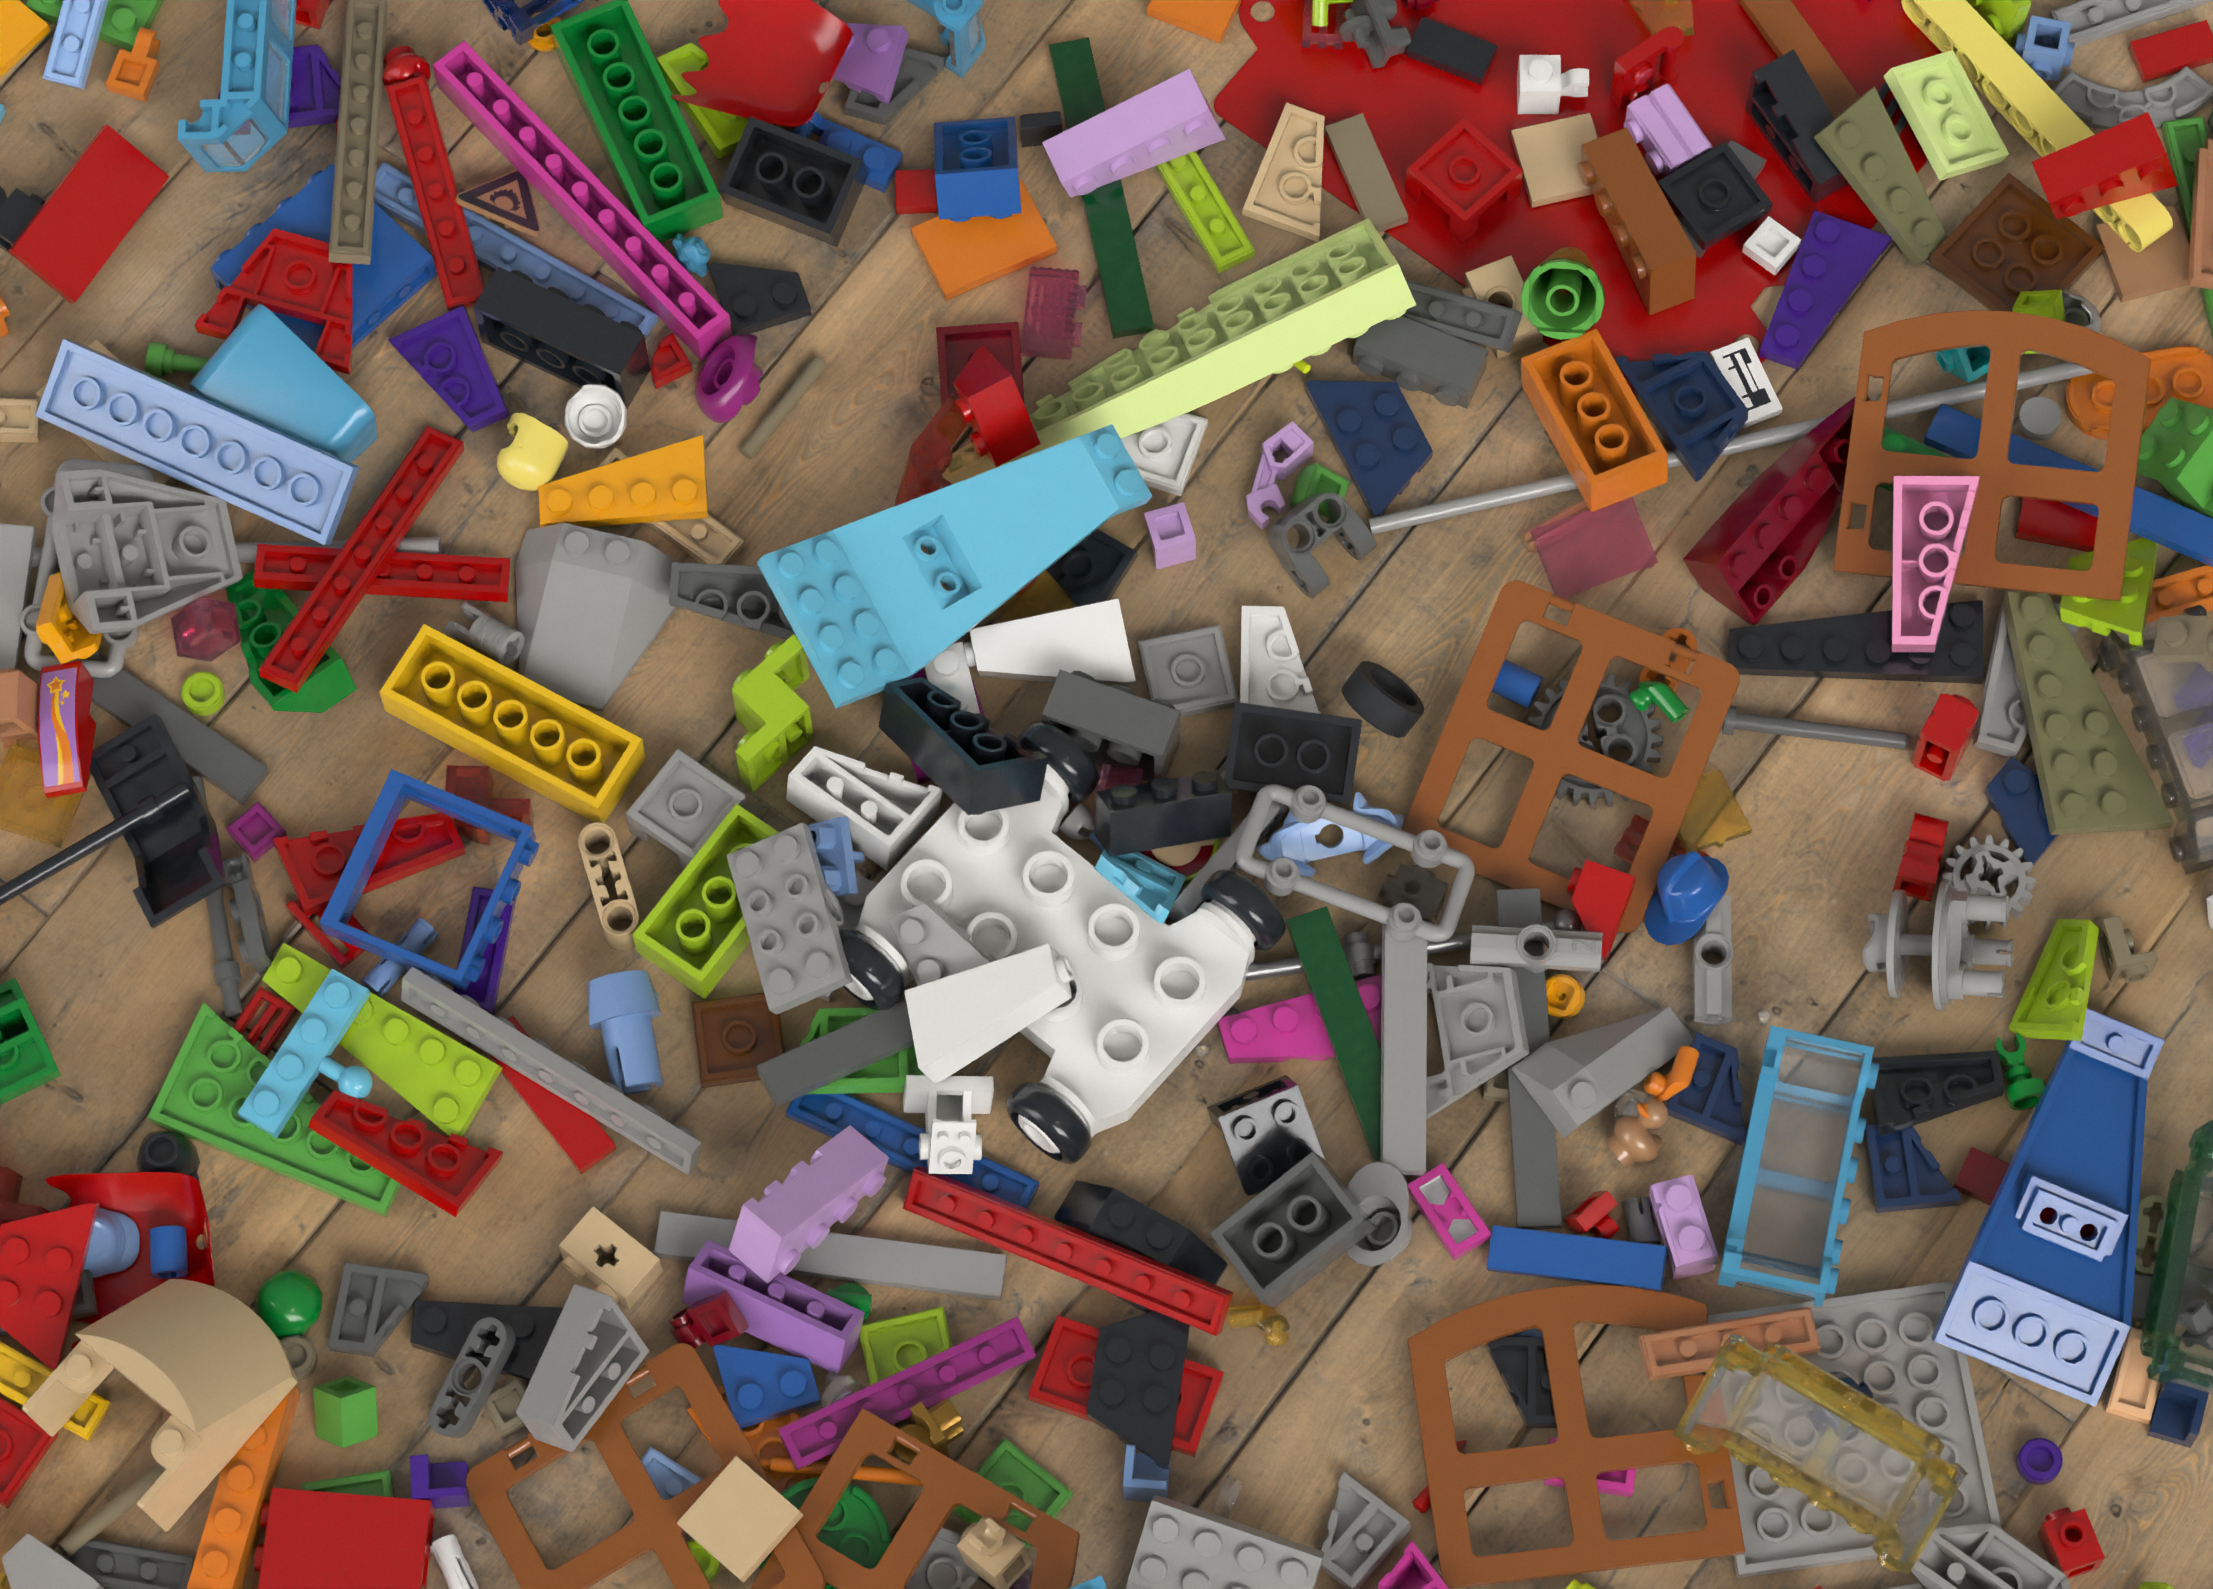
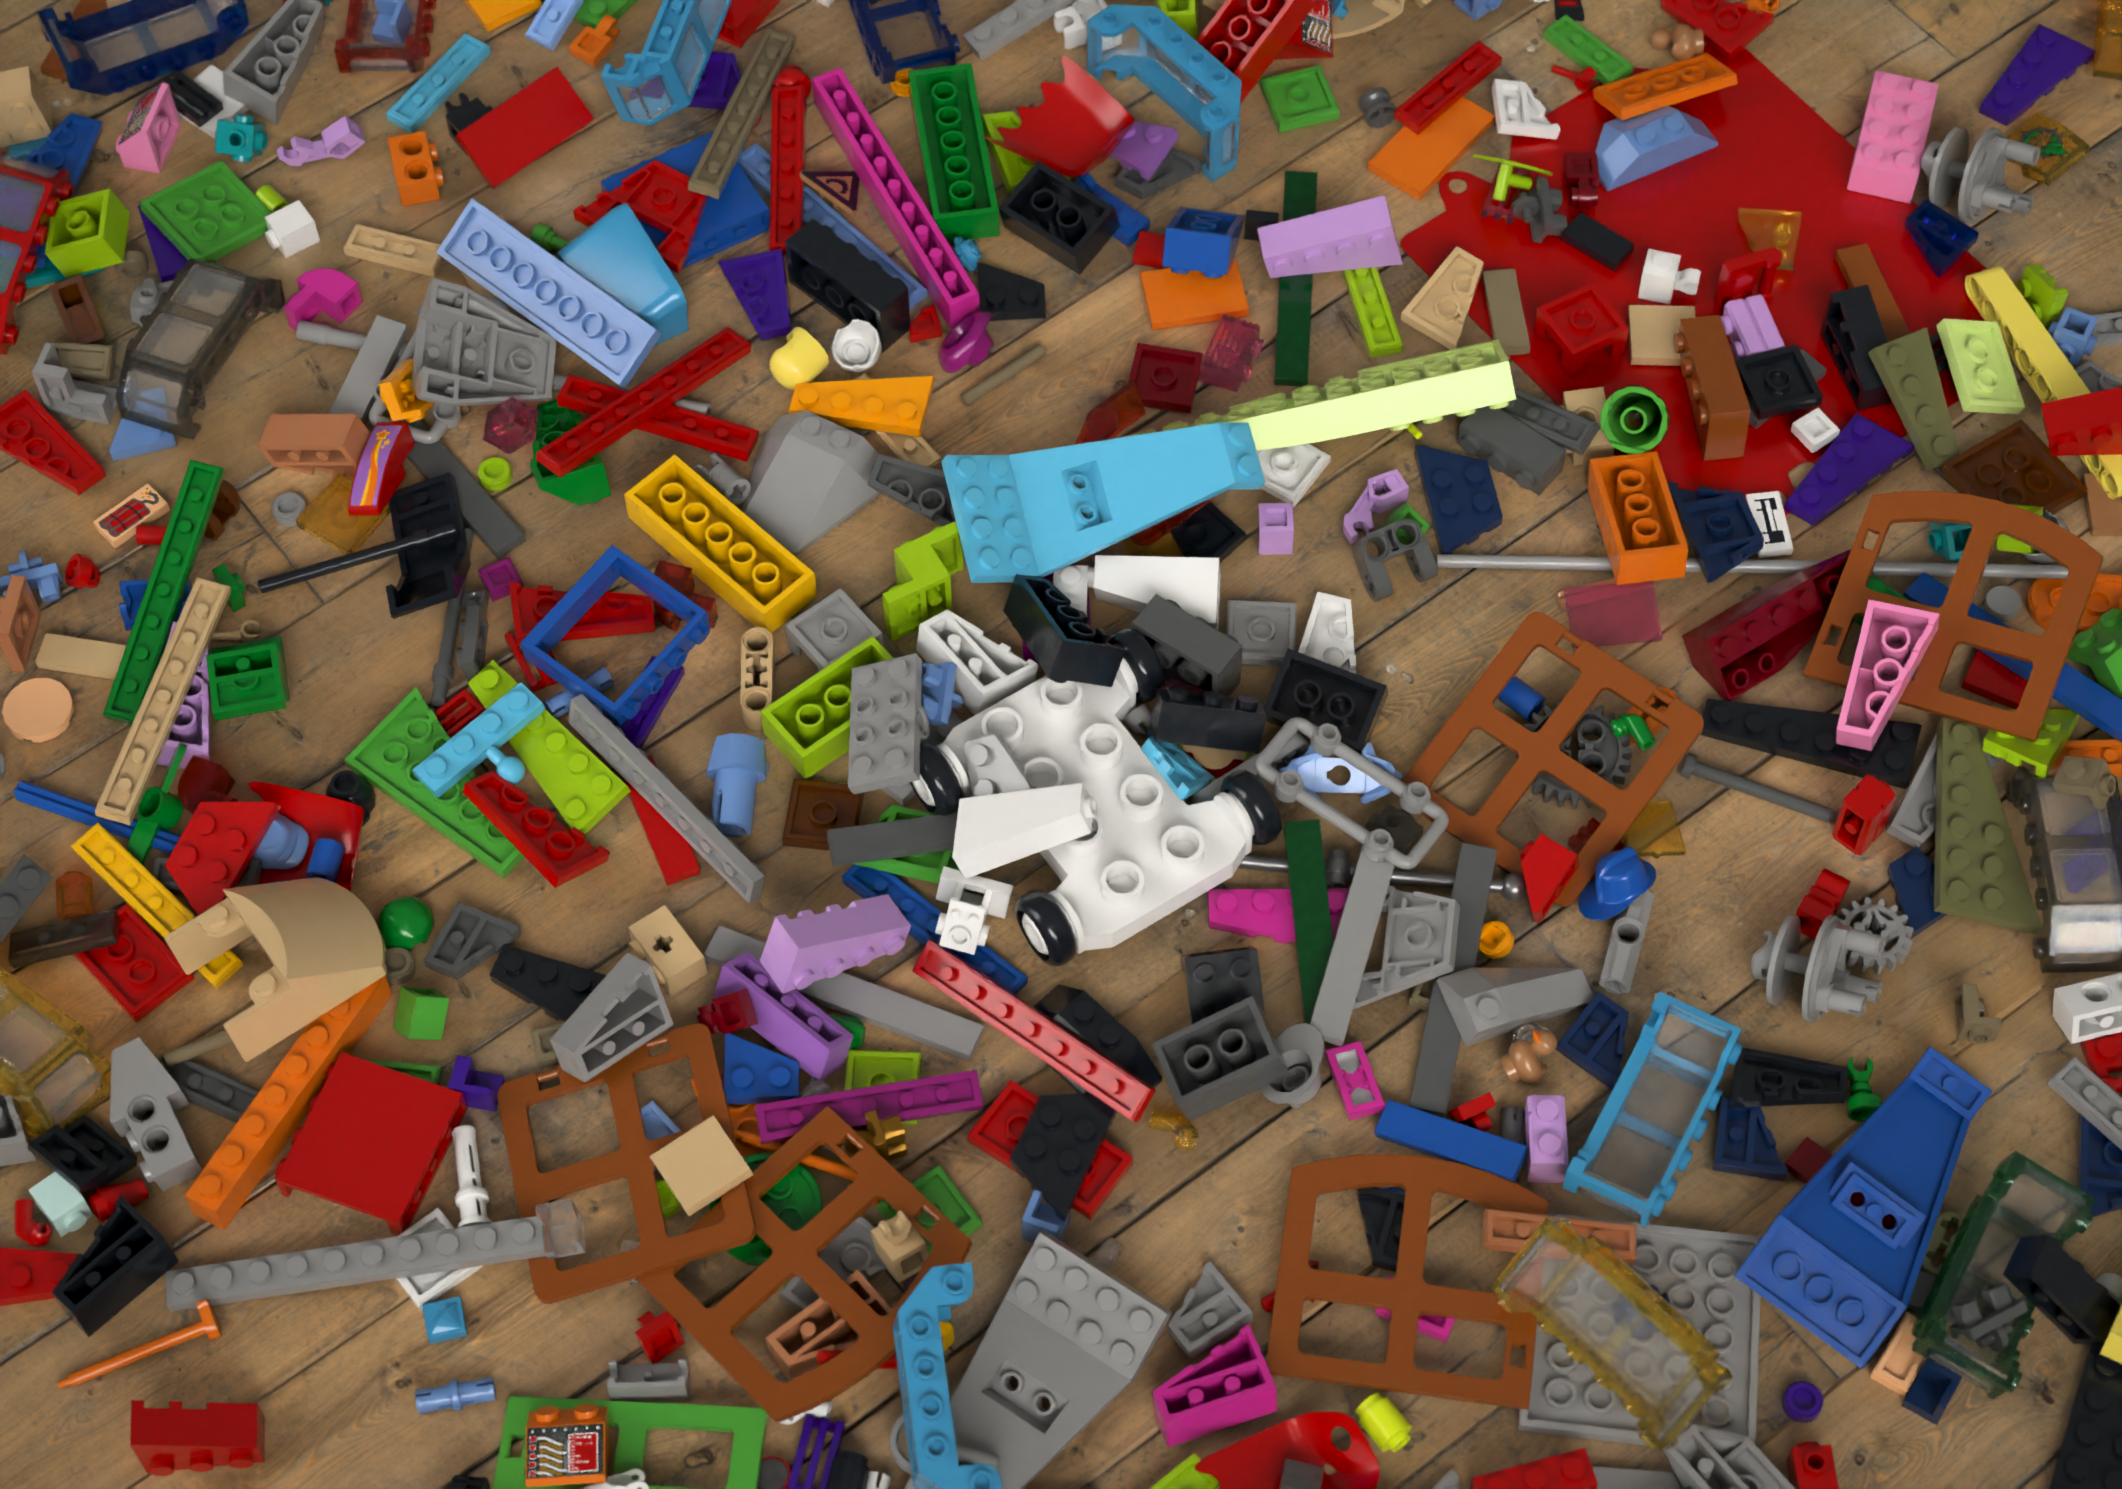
camera: 15 degrees right, 10 degrees down
(454, 1382) = (543, 1010): dark grey beam -> none
(994, 409) = (1160, 396): red slope -> none
(1382, 699) = (1409, 681): black tyre -> none
(1565, 948) = (1503, 898): light grey piece -> none
(1677, 1079) = (1572, 1021): orange arm -> none
(2060, 984) = (1913, 1028): lime wing -> none

